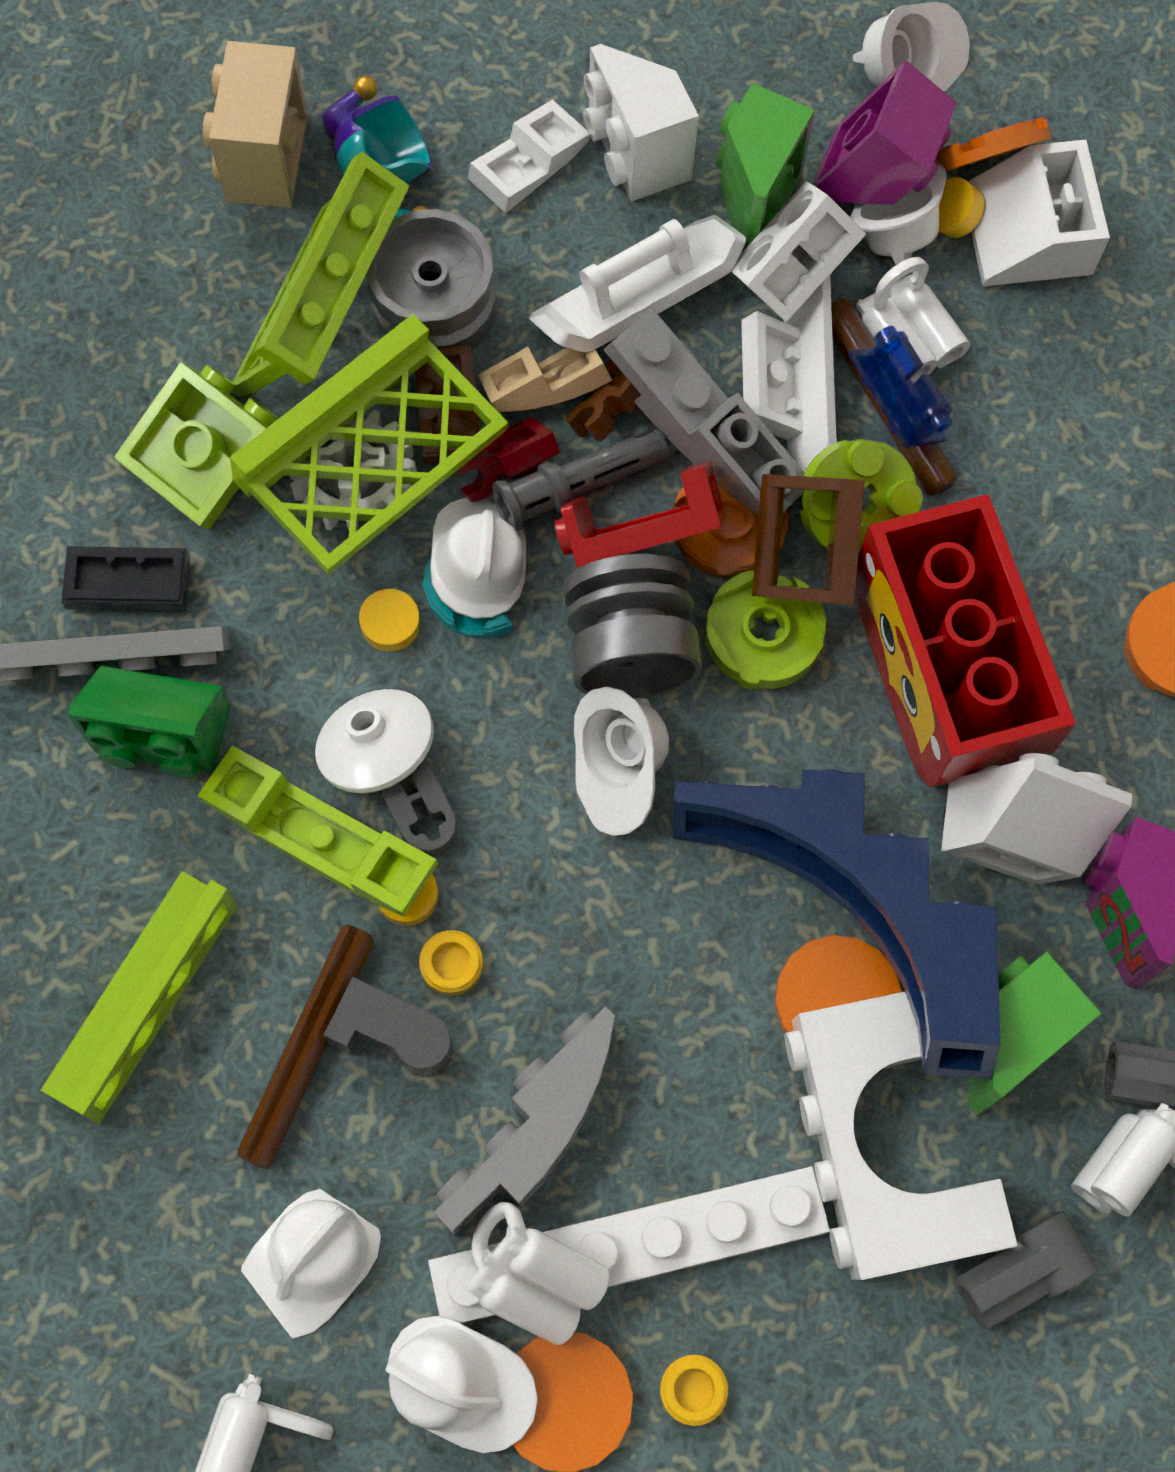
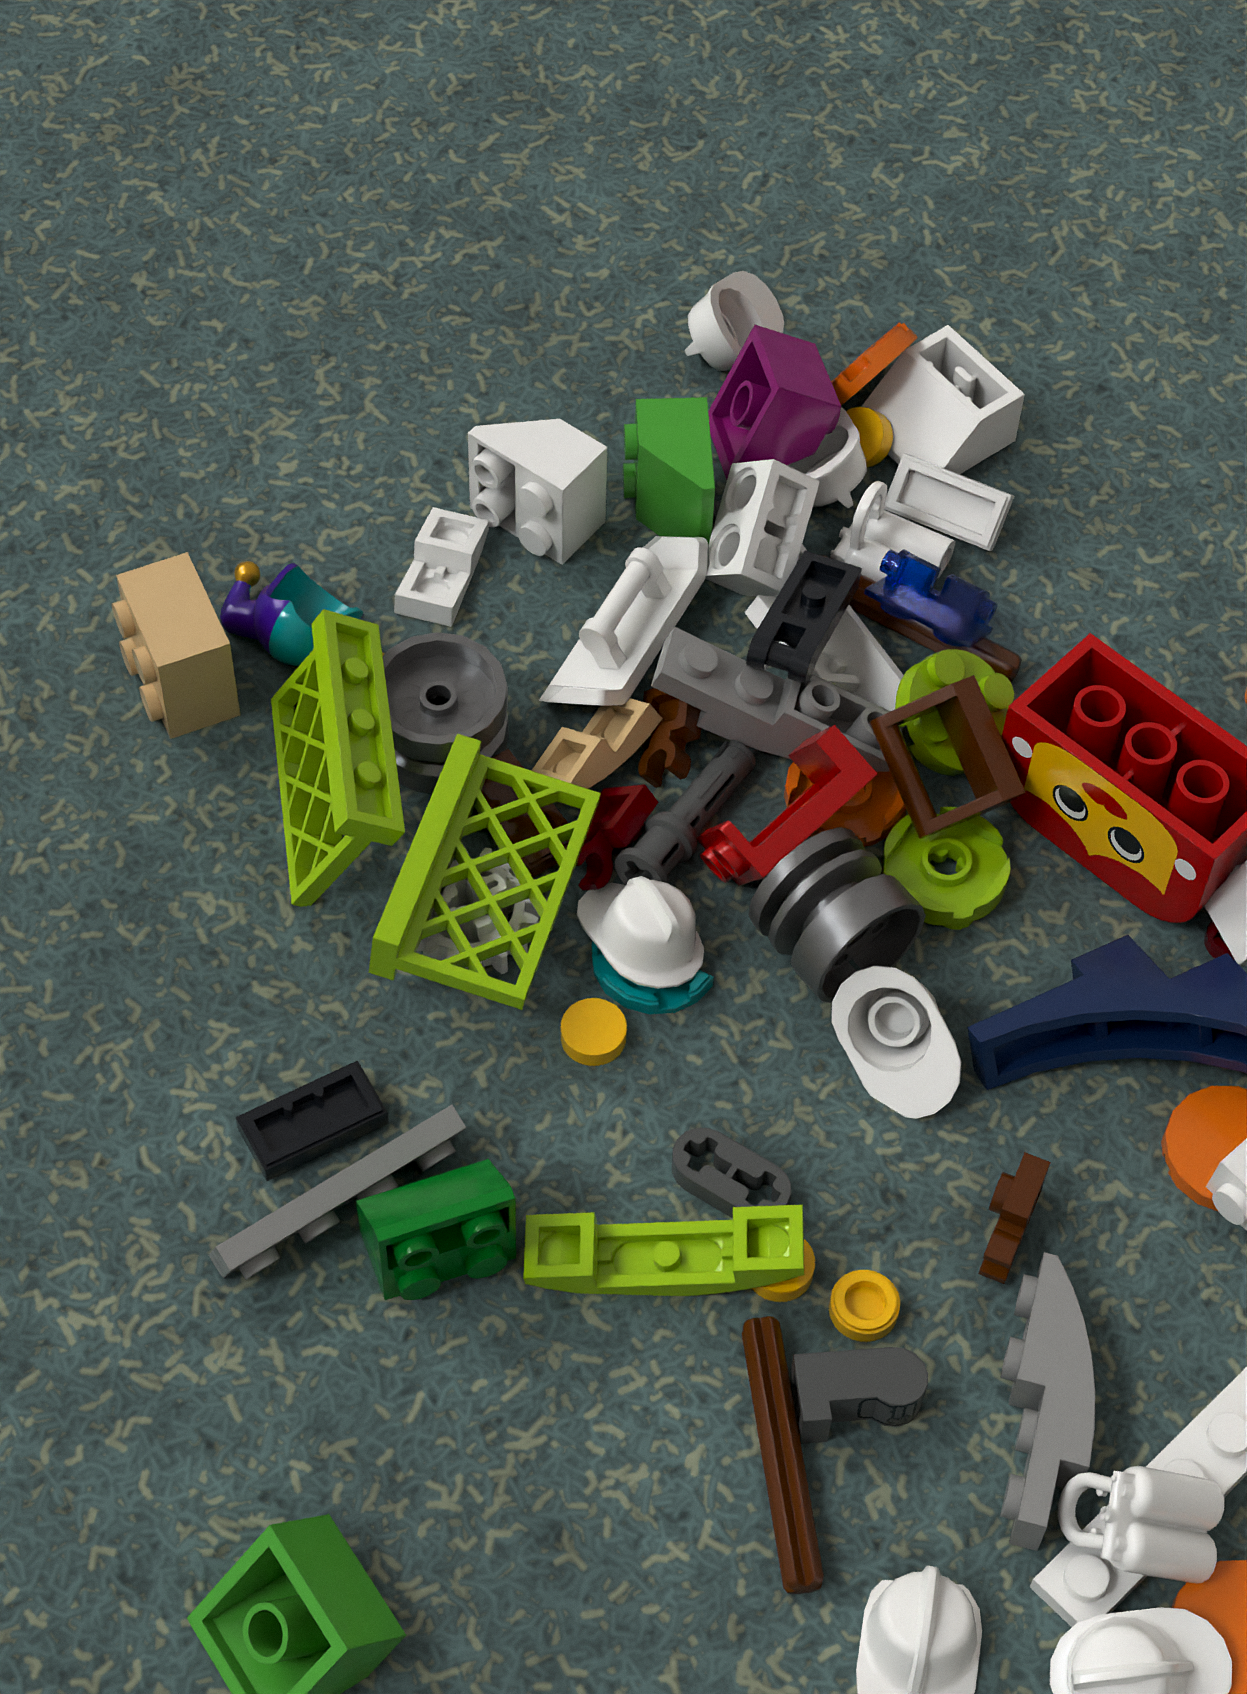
camera: 30 degrees left, 15 degrees down
(140, 997) = (591, 1497): lime fence -> none
(188, 441) = (304, 959): lime plate -> none
(374, 741) = (658, 1142): white dish -> none
(621, 949) = (1015, 1202): none -> reddish brown plate
(772, 350) = (804, 616): none -> black plate
(989, 303) = (948, 502): none -> white tile

